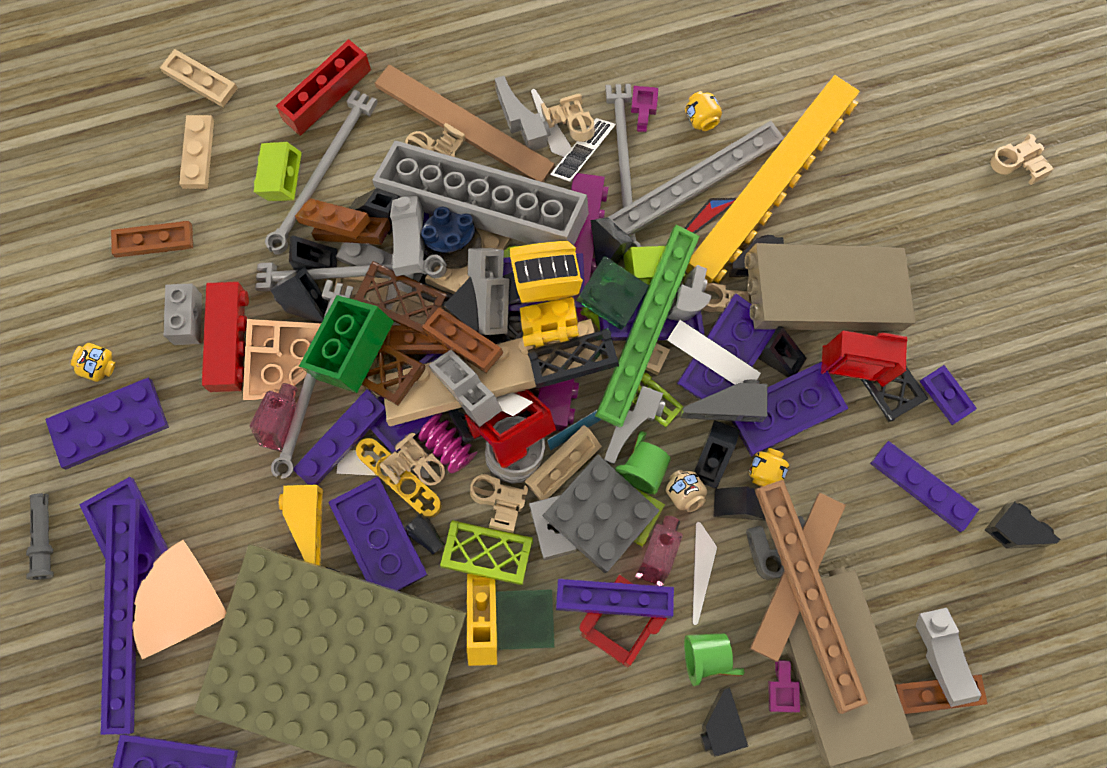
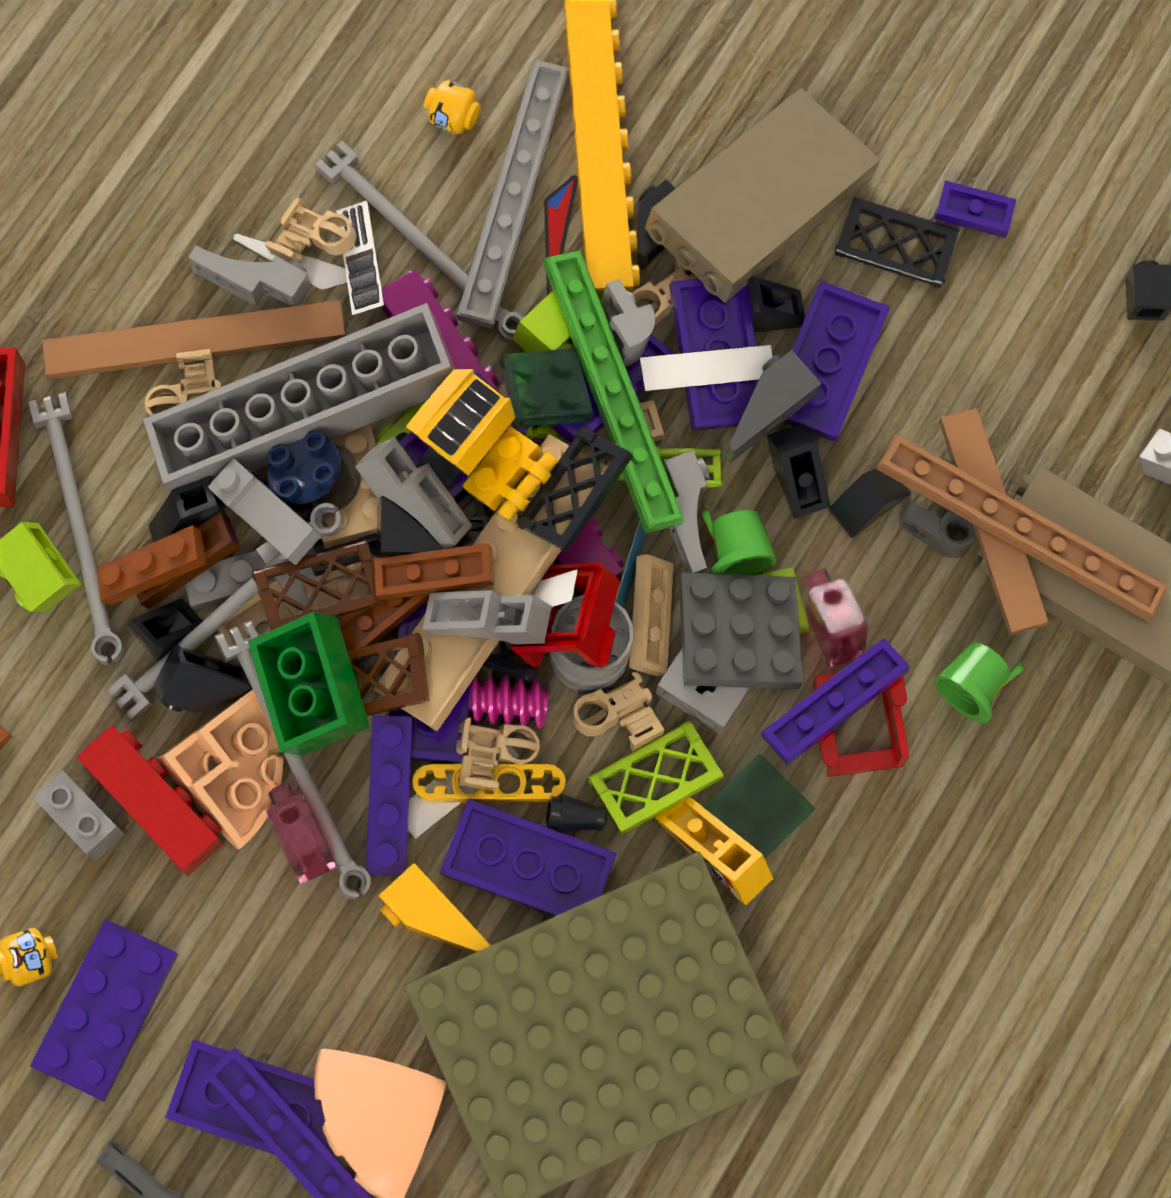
camera: 45 degrees left, 0 degrees up
(609, 240) = (485, 335): black slope -> none
(644, 103) = (379, 150): magenta plate -> none
(686, 490) = (803, 533): tan head -> none
(704, 557) = (881, 588): white sticker -> none
(723, 726) = (1049, 736): black slope -> none
(768, 467) = (865, 438): yellow head -> none
(783, 693) = (1078, 652): magenta plate -> none
(865, 356) = (864, 237): red piece -> none
(924, 486) = (1032, 325): dark purple plate -> none

